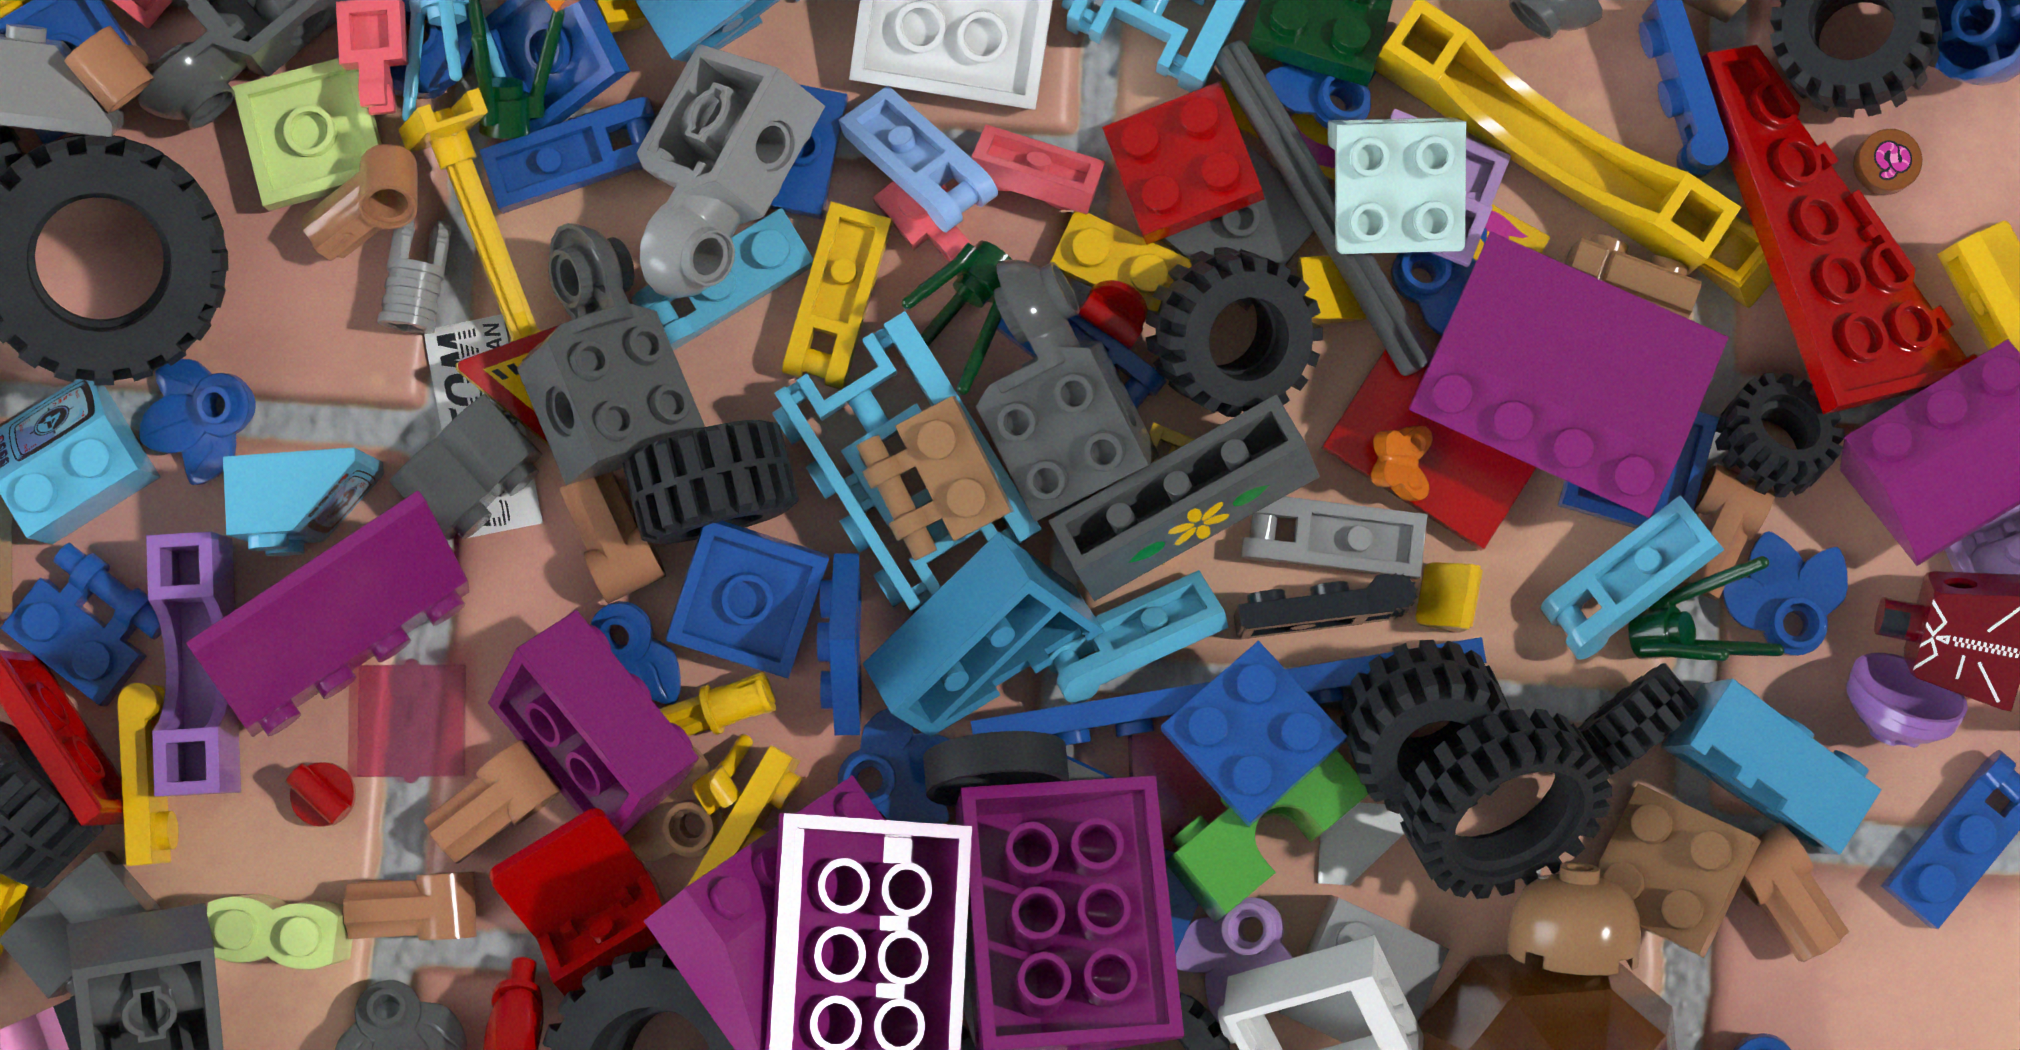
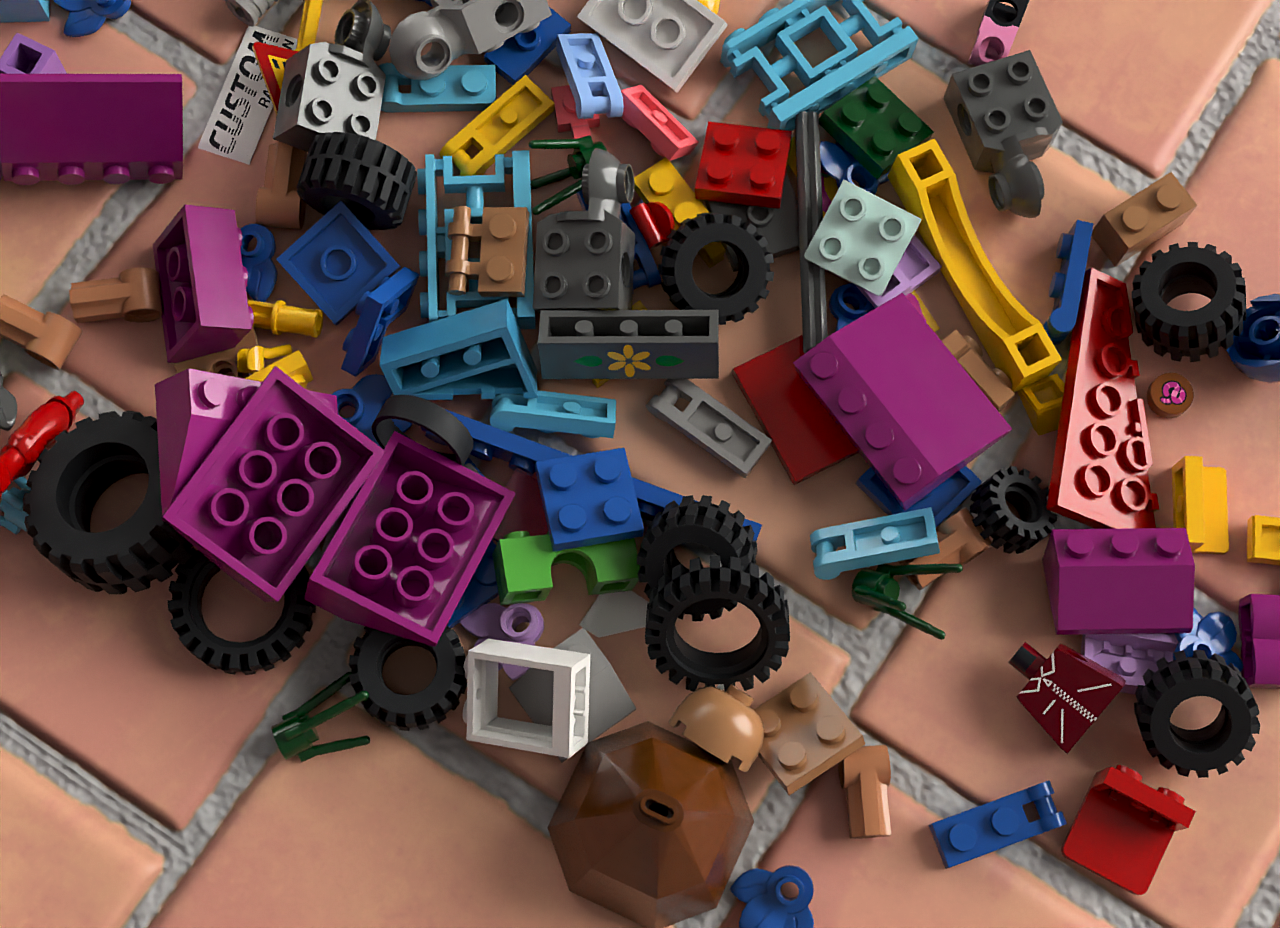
camera: 20 degrees right, 10 degrees down
(294, 496) = (111, 47): medium azure slope -> none
(321, 793) = (23, 238): red plate -> none
(411, 720) = (102, 230): clear pink piece -> none
(469, 467) = (225, 106): dark grey brick -> none
(580, 896) = (127, 364): red bracket -> none
(1326, 608) = (679, 461): black hinge -> none
(1330, 290) = (786, 284): yellow slope -> none
(1398, 461) = (772, 398): orange piece -> none
(1449, 596) = (758, 497): yellow slope -> none
(1638, 718) = (829, 627): black tyre -> none
(1774, 765) = (899, 703): dark azure wedge -> none
(1786, 586) = (968, 606): blue plate -> none
(1899, 705) = (999, 712): medium lavender piece -> none

